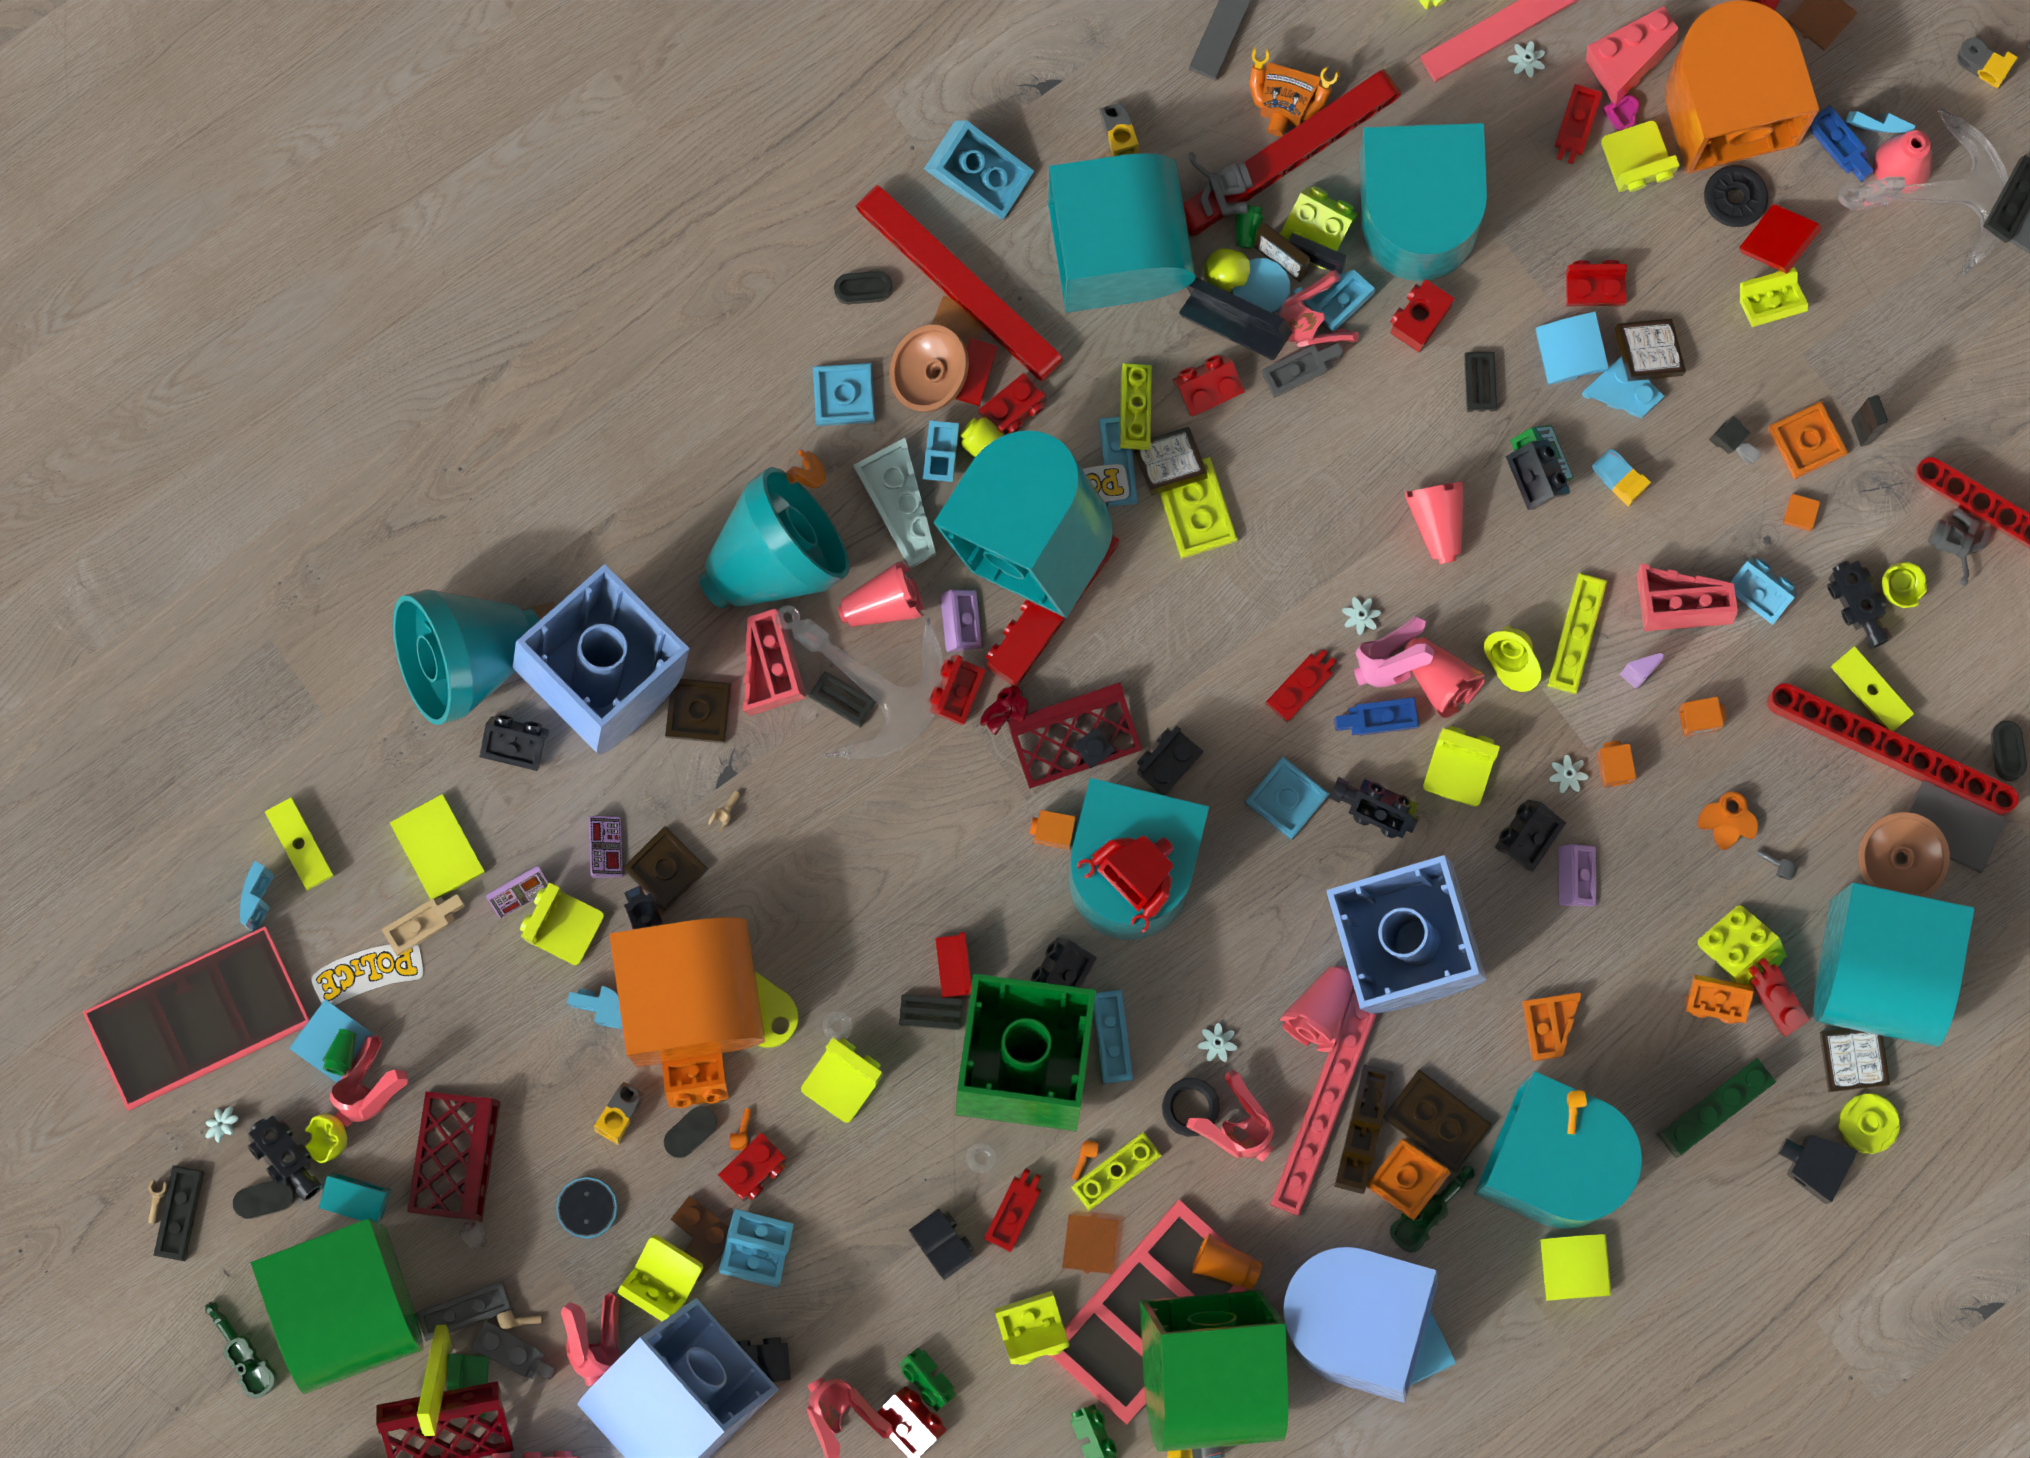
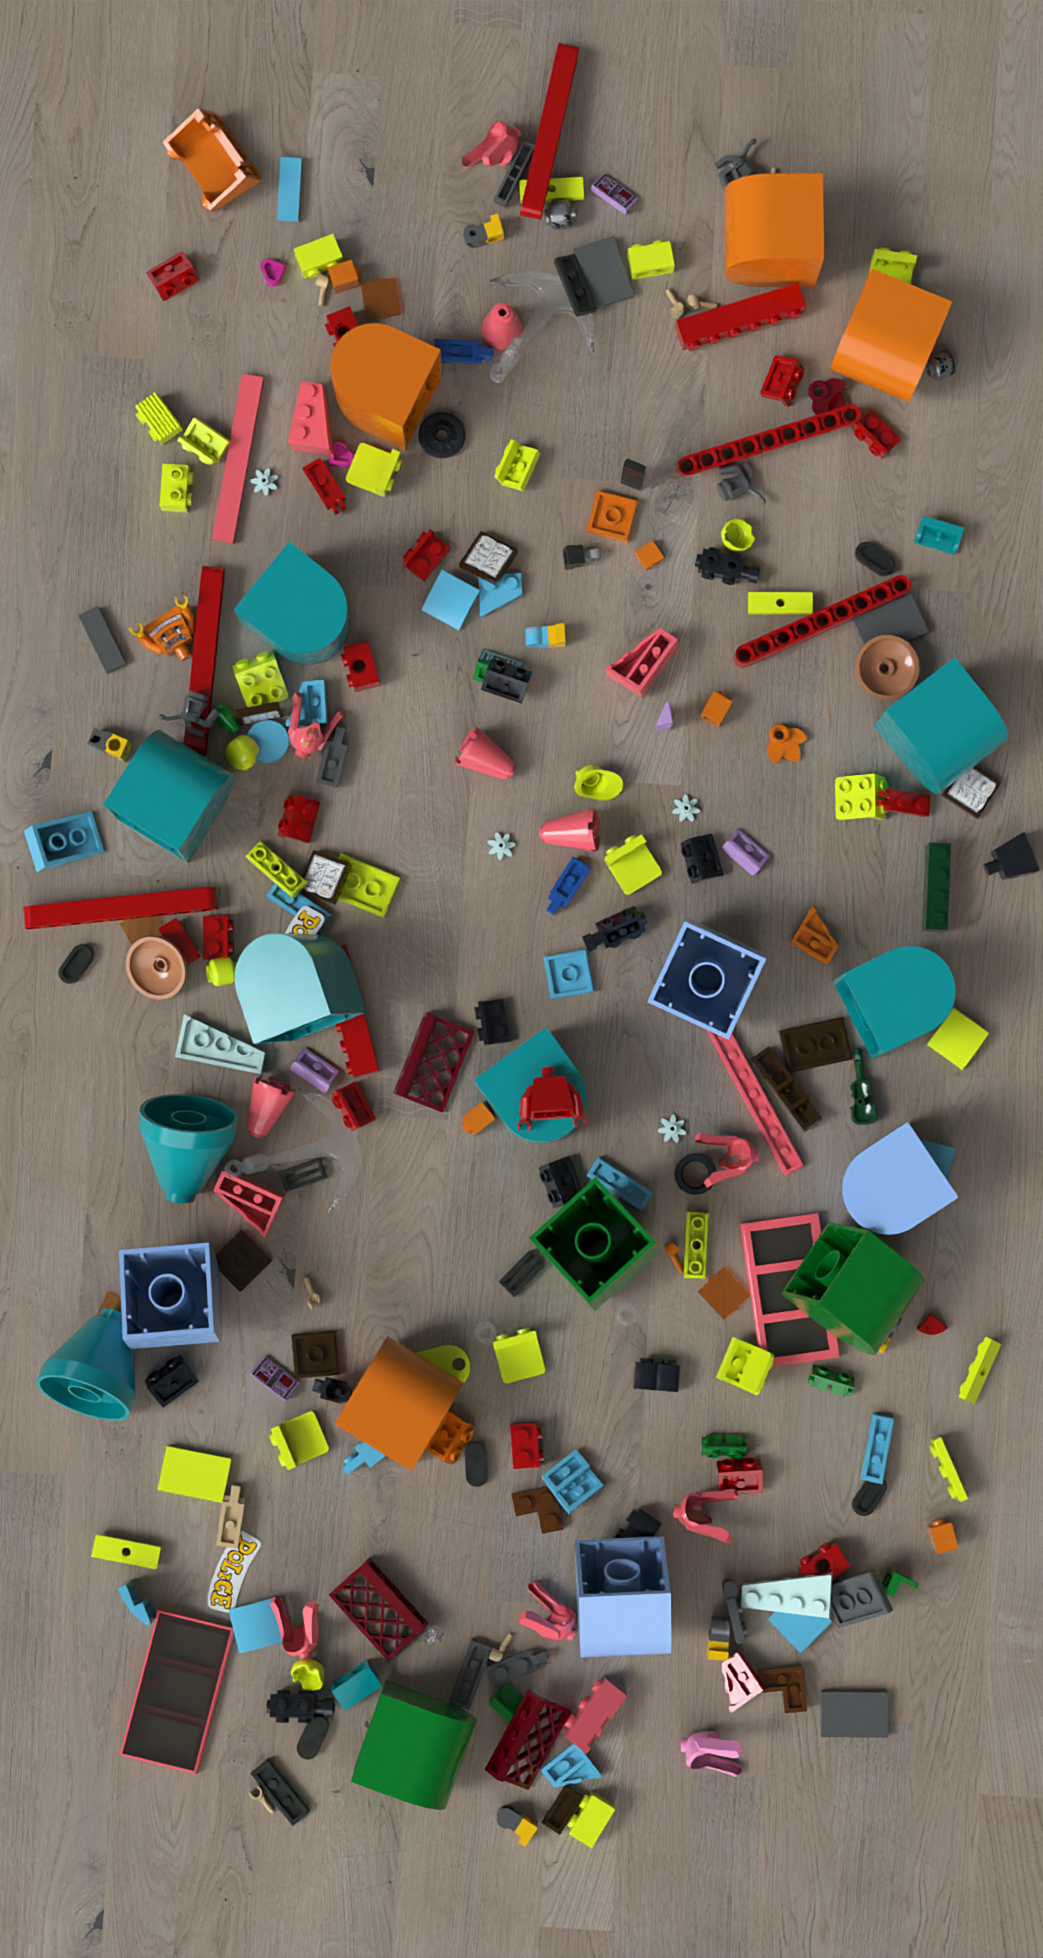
camera: 55 degrees left, 5 degrees up
(221, 1124) = (250, 1726): light aqua plant -> none
(255, 1375) = (409, 1822): dark green piece -> none
(340, 1053) = (267, 1627): green cone -> none
(434, 1380) = (499, 1726): neon yellow tile -> none
(517, 892) = (259, 1449): slope -> none
(586, 1208) = (470, 1557): black tile -> none
(619, 1113) = (432, 1495): leg -> none
(661, 1278) = (546, 1550): neon yellow bracket -> none
(738, 1141) = (504, 1441): orange hand -> none
(814, 472) = (161, 1083): orange piece -> none
(844, 394) = (128, 1027): medium azure tile -> none
(941, 451) = (209, 1000): medium azure brick -> none
(953, 966) = (506, 1239): red panel -> none
(1008, 705) = (386, 1086): dark red plate -> none
(1013, 1211) = (671, 1321): red hinge -> none
(1093, 747) = (450, 1058): black plate -> none
(1226, 1263) = (798, 1228): orange plant -> none
(1235, 319) = (276, 772): black panel -> none
(1301, 686) = (512, 912): red hinge -> none
(1320, 254) = (278, 694): black tile -> none
(1320, 1010) = (702, 1056): coral cone -> none
(1381, 670) = (540, 862): bright pink piece -> none
(1408, 1179) = (835, 1088): orange tile -> none
(1481, 406) = (440, 678): pearl dark grey tile -> none
(1575, 1100) = (878, 965): light orange hand -> none
(1577, 633) = (612, 736): neon yellow tile -> none
(1616, 764) = (703, 778): orange brick -> none
(1719, 999) = (879, 835): orange bracket -> none
(1763, 589) = (675, 613): medium azure bracket -> none
(1780, 238) = (487, 432): red tile -> none
(1785, 867) = (837, 735): dark grey hand -> none
(1869, 1123) = (1012, 812): neon yellow tile -> none
(1886, 123) = (472, 320): medium azure slope -> none

